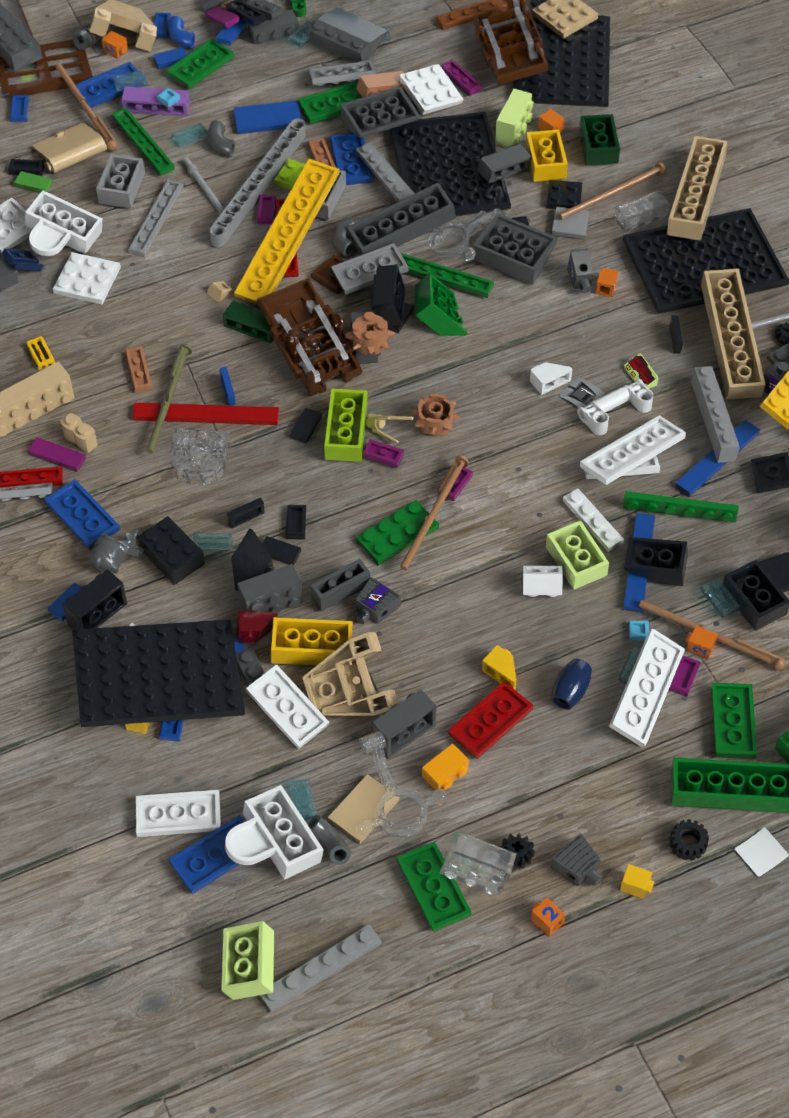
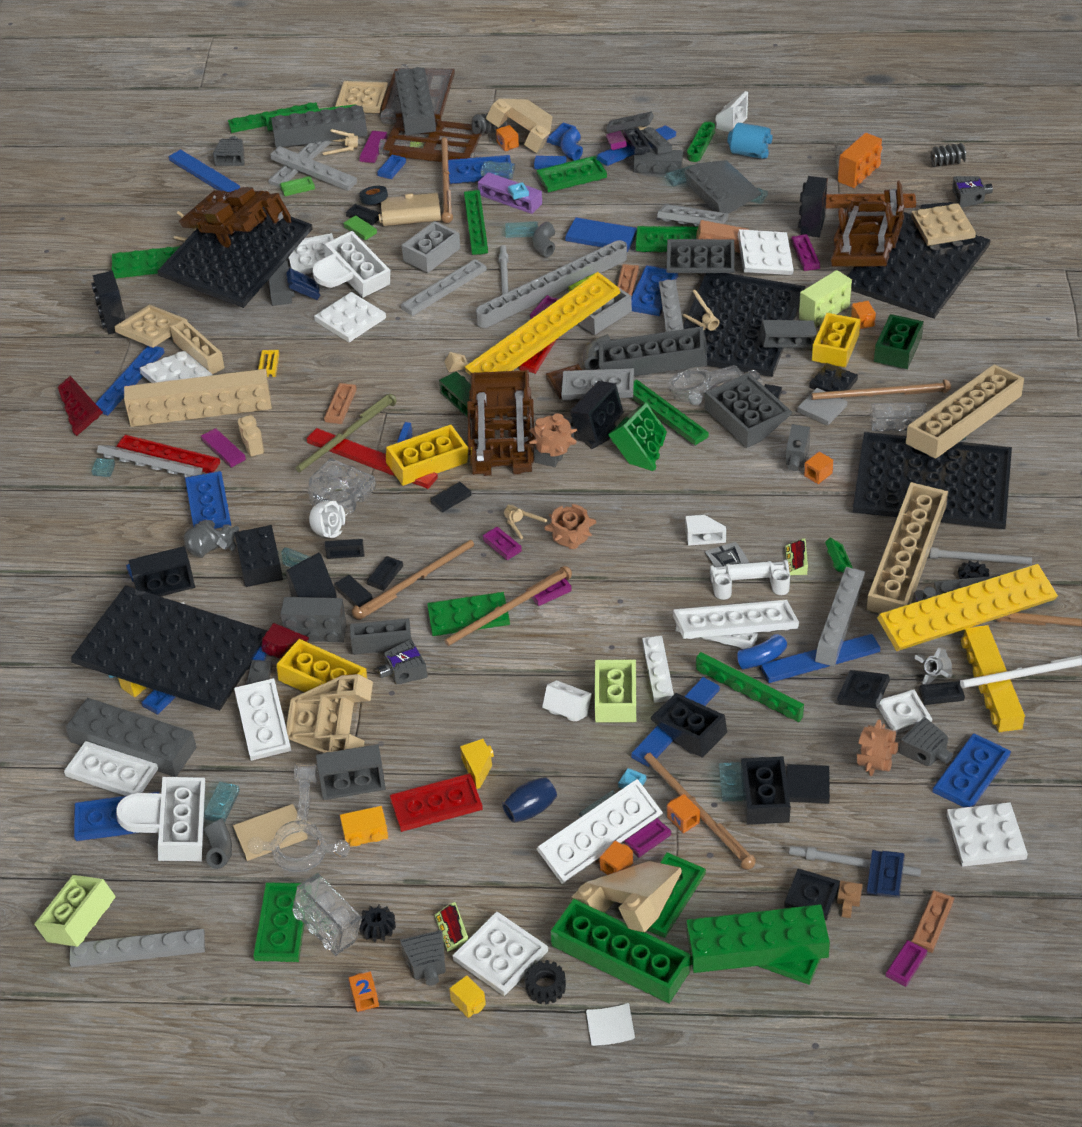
camera: 30 degrees right, 10 degrees down
(24, 144) = (373, 195): none -> black bush
(175, 772) = (132, 735): none -> dark grey brick
(210, 489) = (327, 519): none -> white cylinder
(260, 393) = (426, 454): none -> yellow brick
(315, 542) = (389, 595): none -> medium nougat bar
(346, 425) = (482, 506): lime brick -> none
(427, 172) = (708, 320): none -> tan plant
(449, 31) = (813, 206): none -> black brick
(577, 822) = (452, 927): none -> slope
(636, 831) = (500, 953): none -> white plate
(674, 472) = (762, 653): none -> blue cylinder
(676, 334) = (855, 534): black tile -> none
(676, 707) = (616, 858): none -> orange brick
(680, 363) = (838, 555): none -> green plate
(716, 721) = (640, 889): none -> tan wedge

